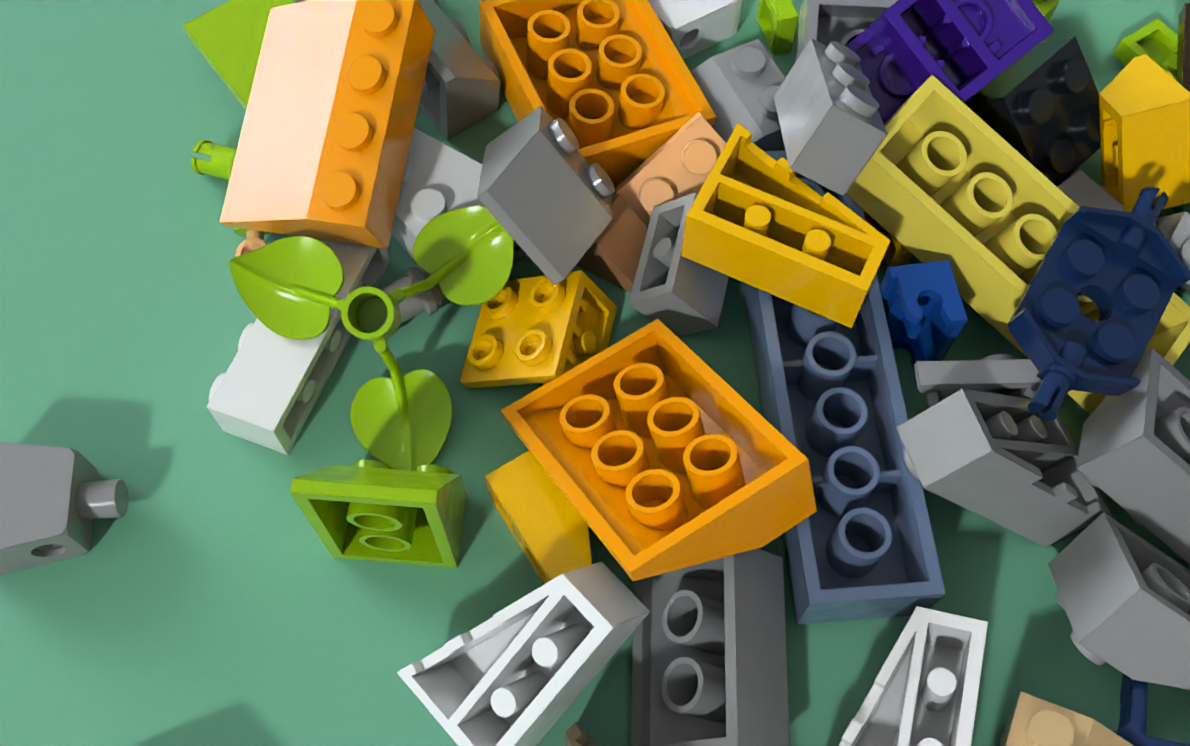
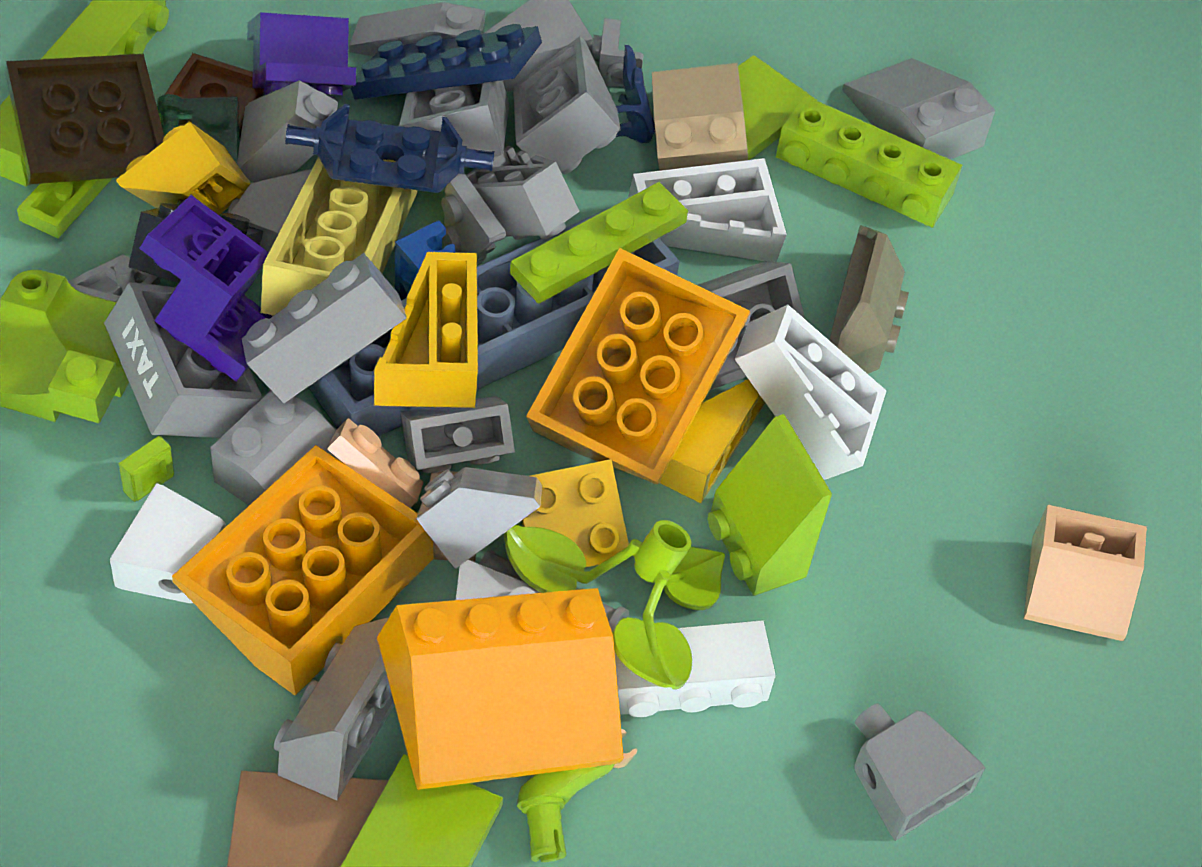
camera: 125 degrees left, 10 degrees down
(877, 515) = (596, 241): none -> lime plate

